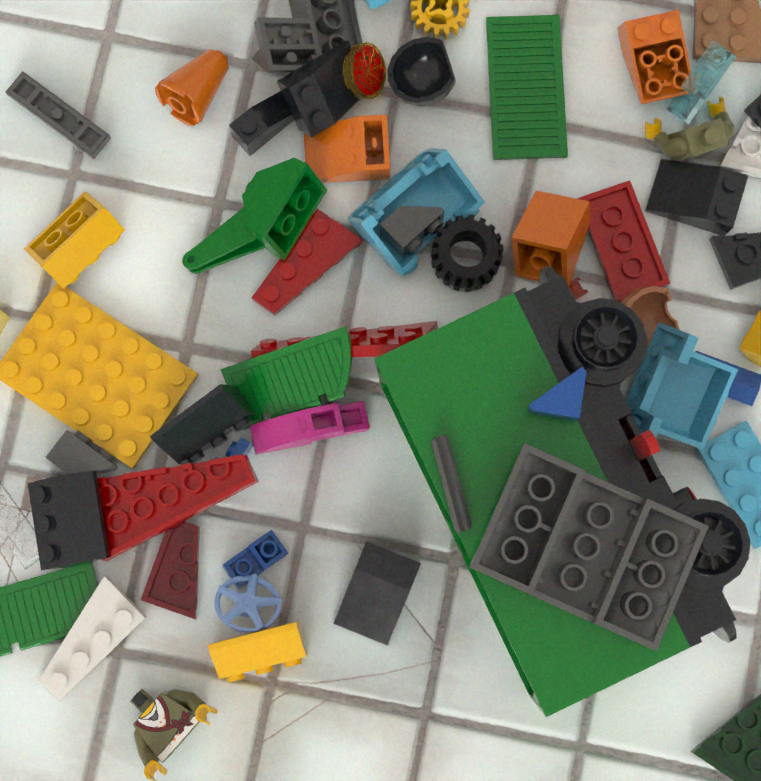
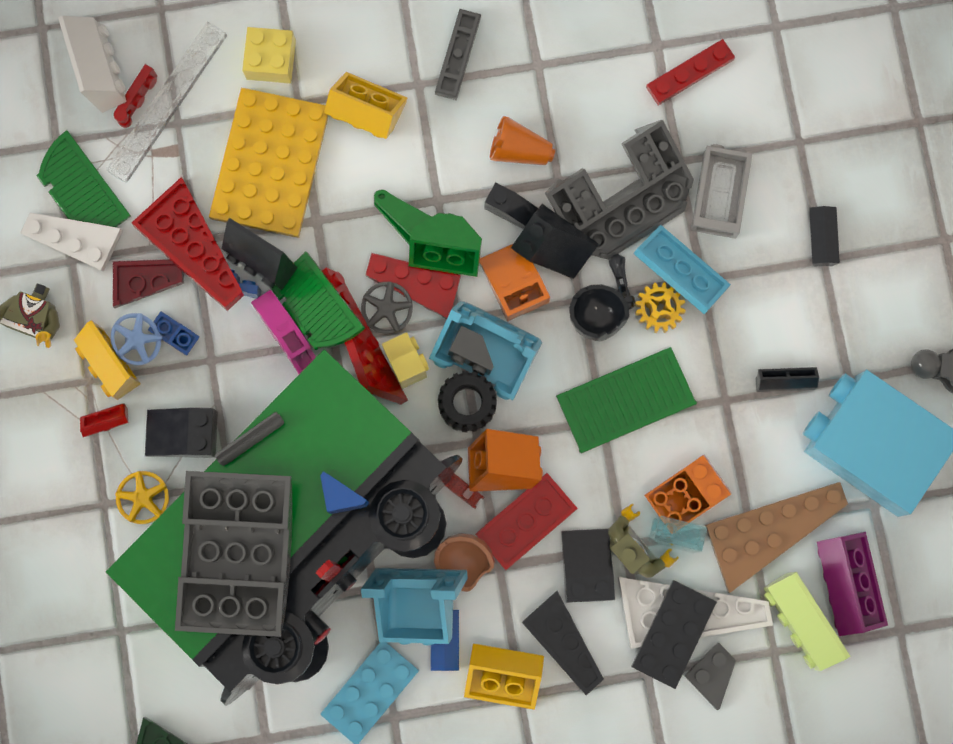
camera: 75 degrees right, 0 degrees up
(68, 520) = (150, 186): black slope -> none
(76, 456) = (202, 174): dark grey slope -> none
(321, 303) = (386, 307): none -> dark grey wheel
(327, 678) = (103, 420): none -> red plate
(364, 70) = (582, 268): tile -> none
(379, 36) = (617, 266): none -> black piece
(395, 304) = (405, 361): none -> light yellow brick
(435, 665) = (141, 497): none -> yellow wheel

